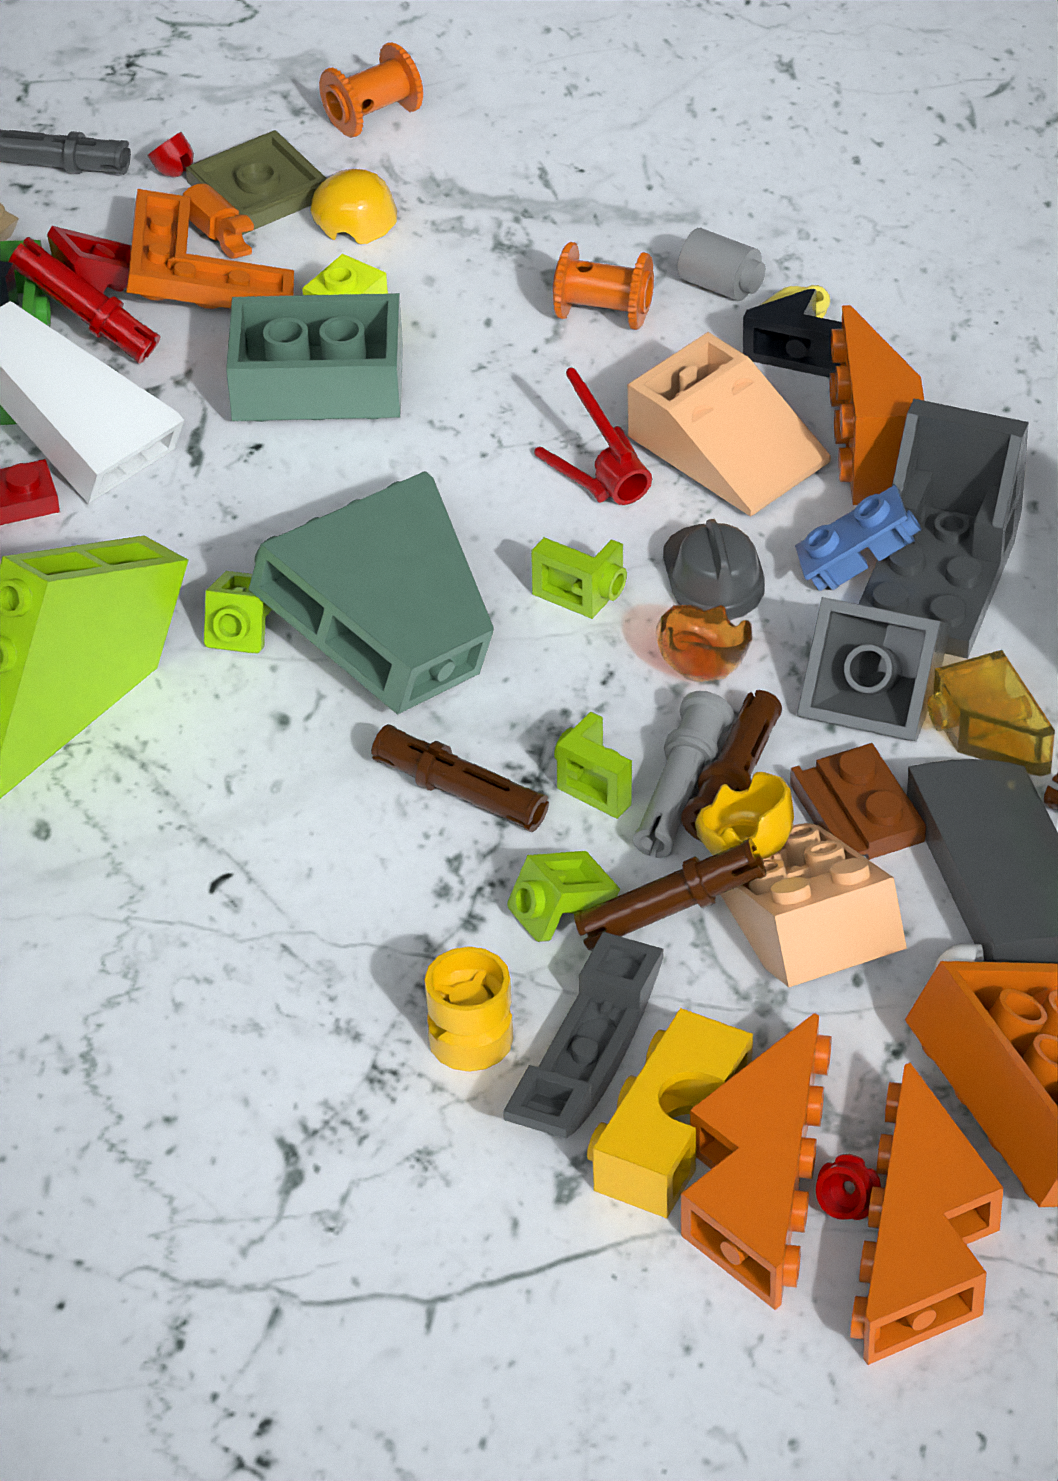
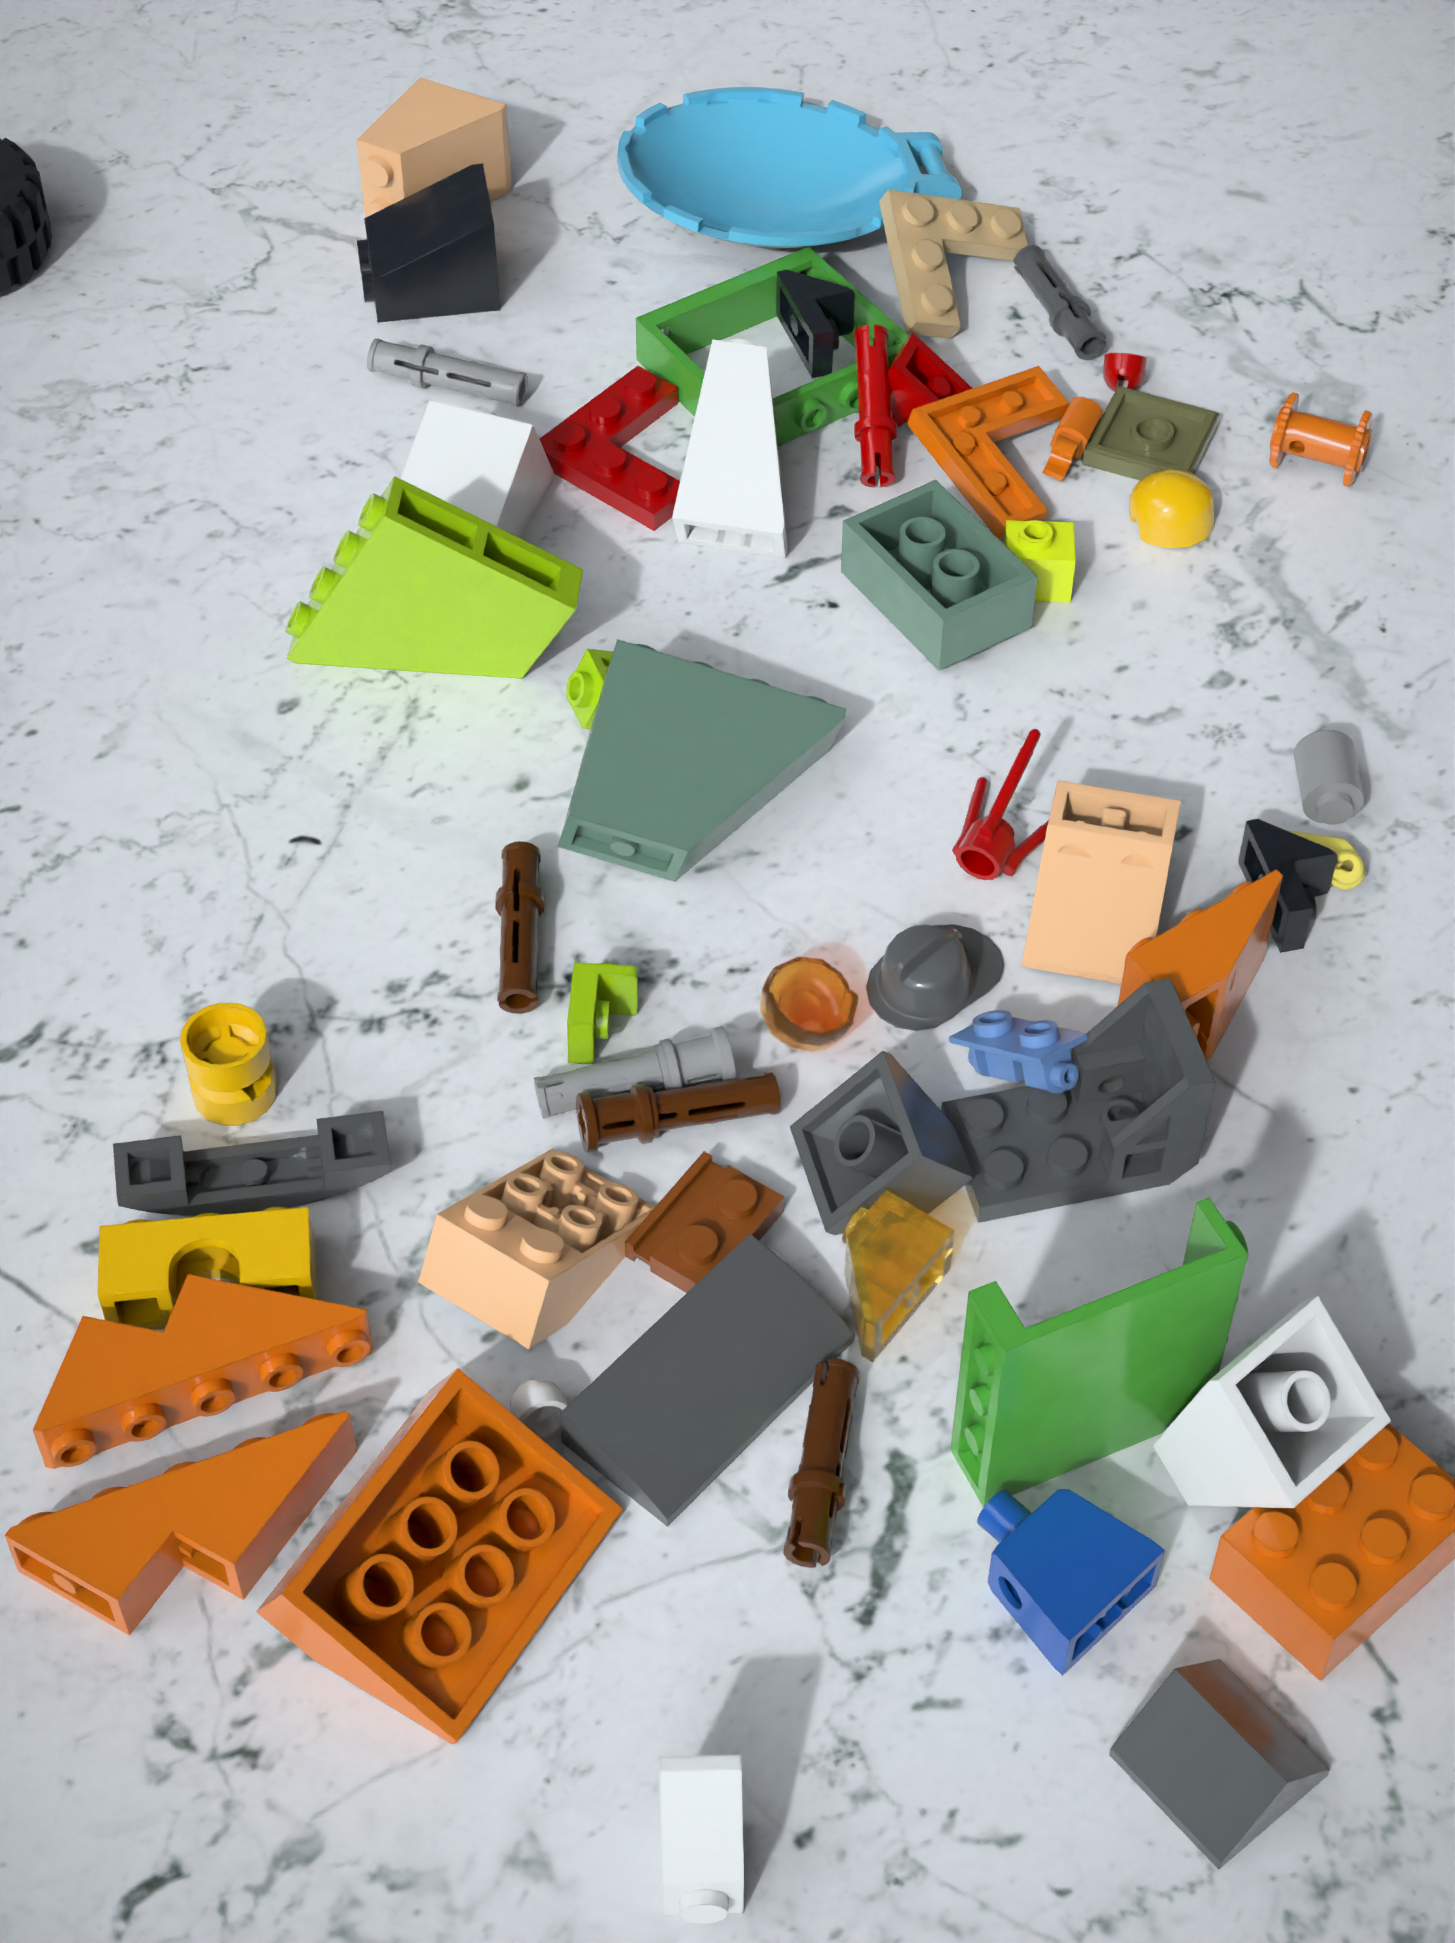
camera: 55 degrees right, 5 degrees up
(555, 886) = (431, 1059): lime bracket -> none
(576, 578) = (827, 891): lime bracket -> none
(603, 285) = (1225, 730): orange hose -> none
(693, 884) = (460, 1140): reddish brown pin -> none
(758, 813) = (562, 1140): yellow hair -> none
(831, 1187) = (197, 1439): red plate -> none

